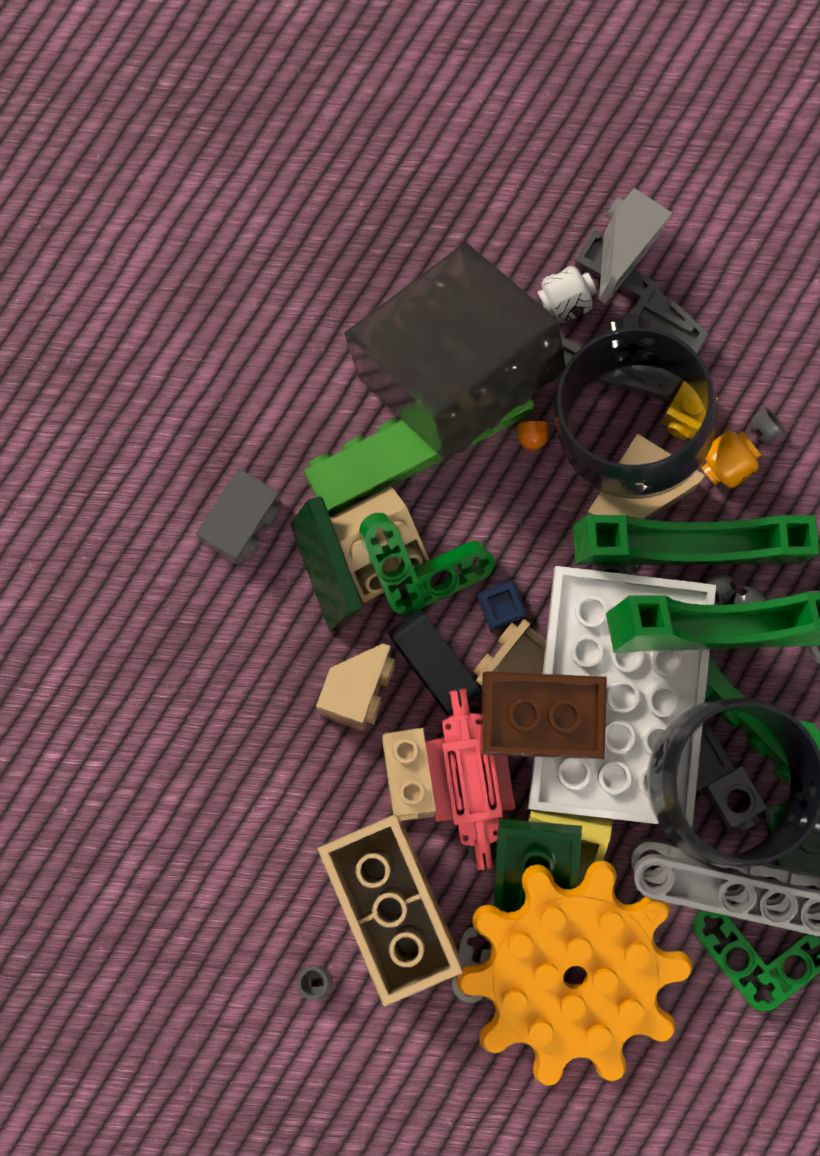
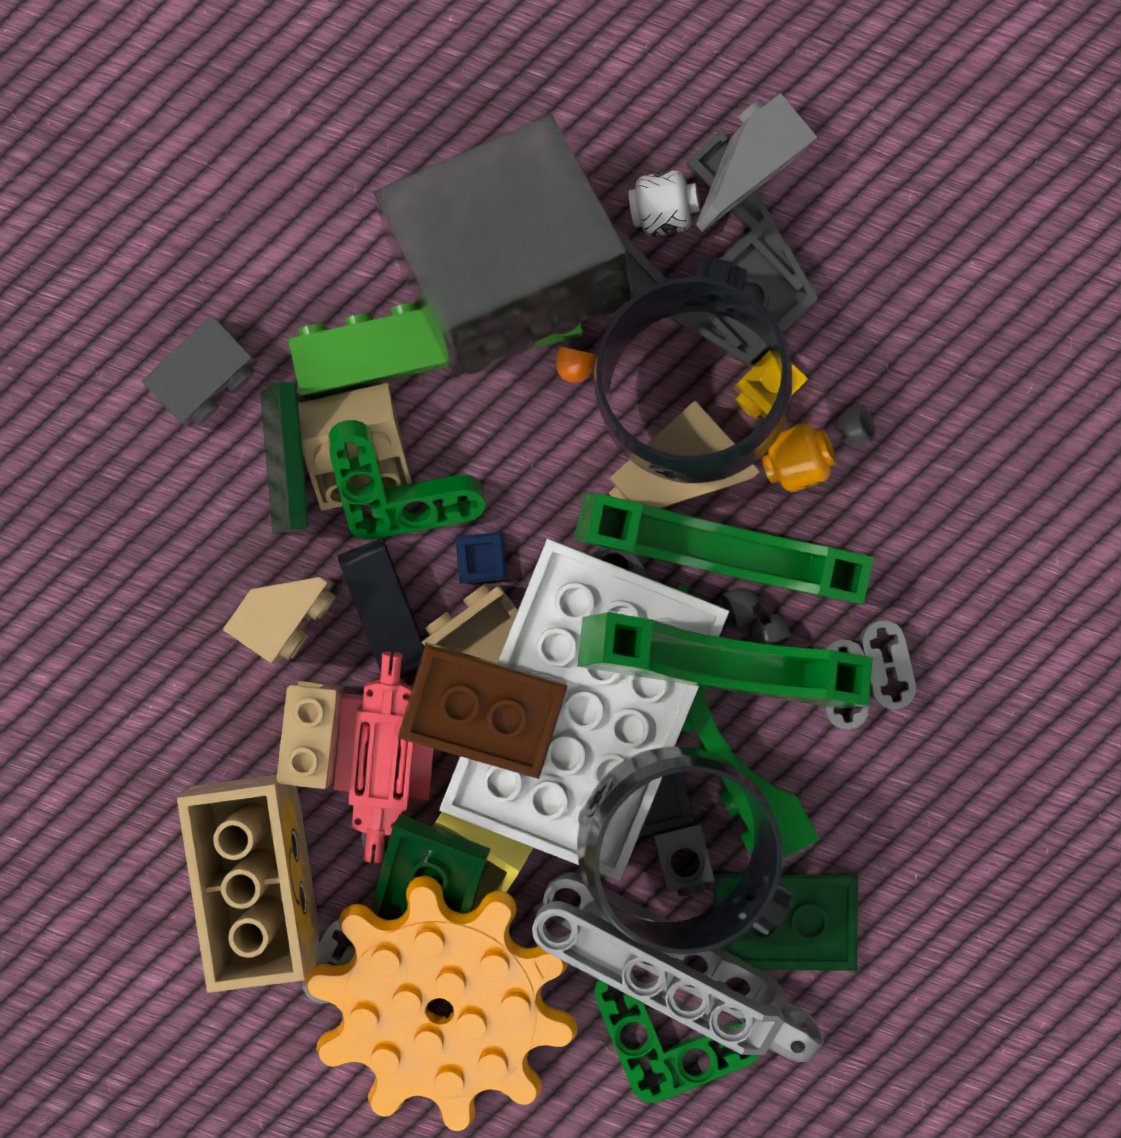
camera: 20 degrees right, 10 degrees up
(314, 972) = (146, 942): dark grey hinge -> none

